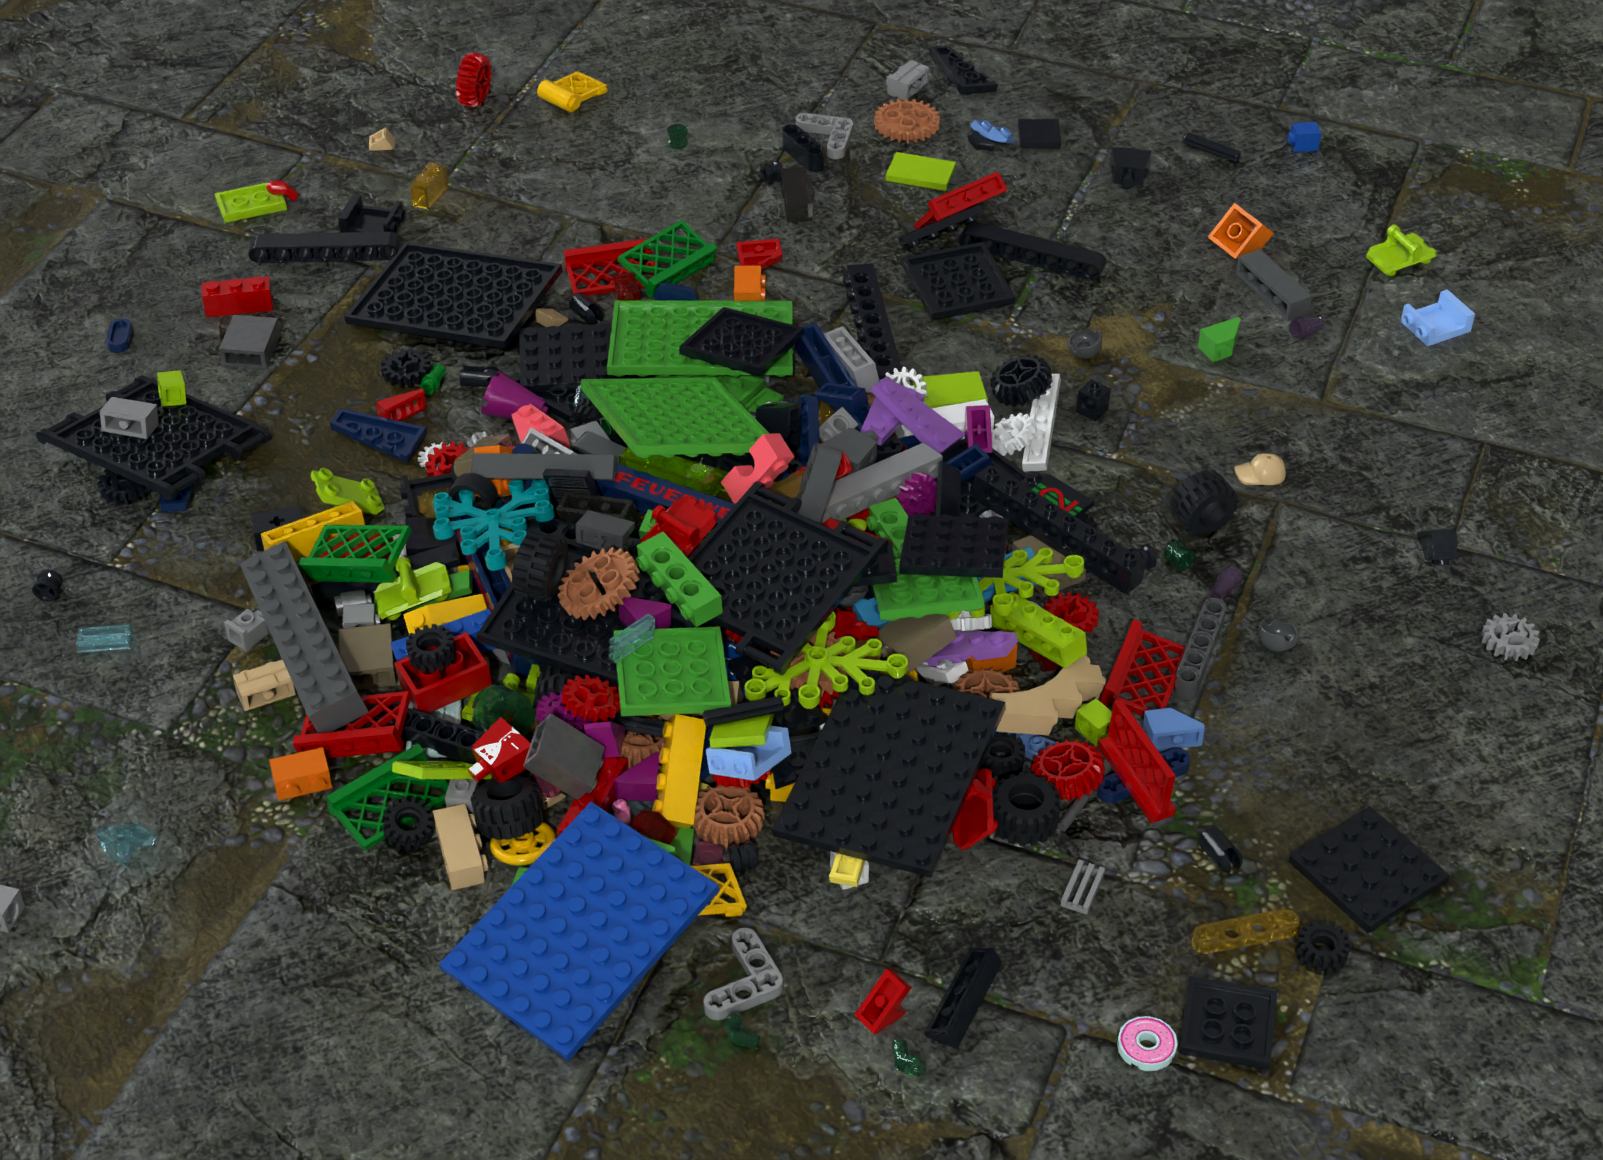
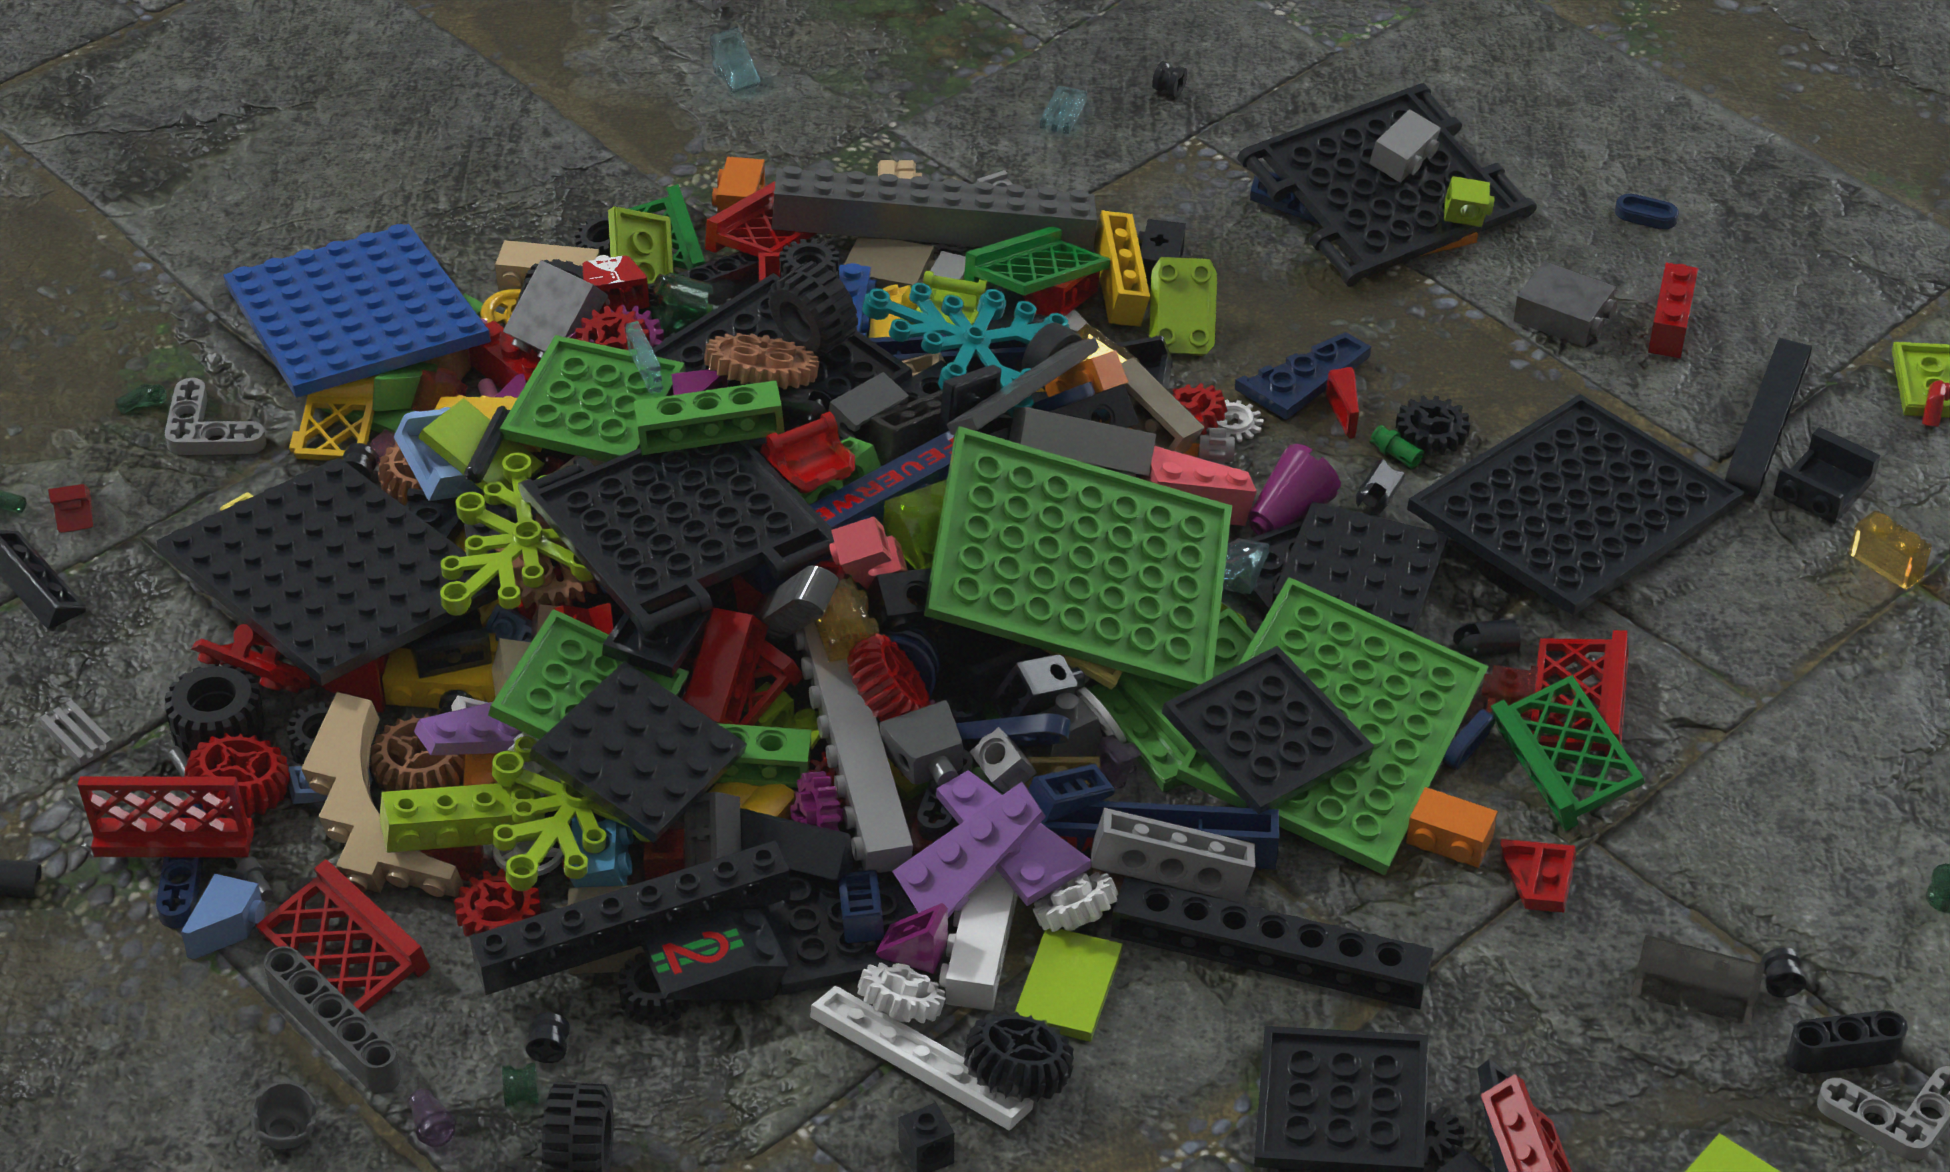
camera: 115 degrees right, 0 degrees up
(550, 317) = (1489, 597): tan slope -> none
(1093, 721) = (297, 846): lime brick -> none

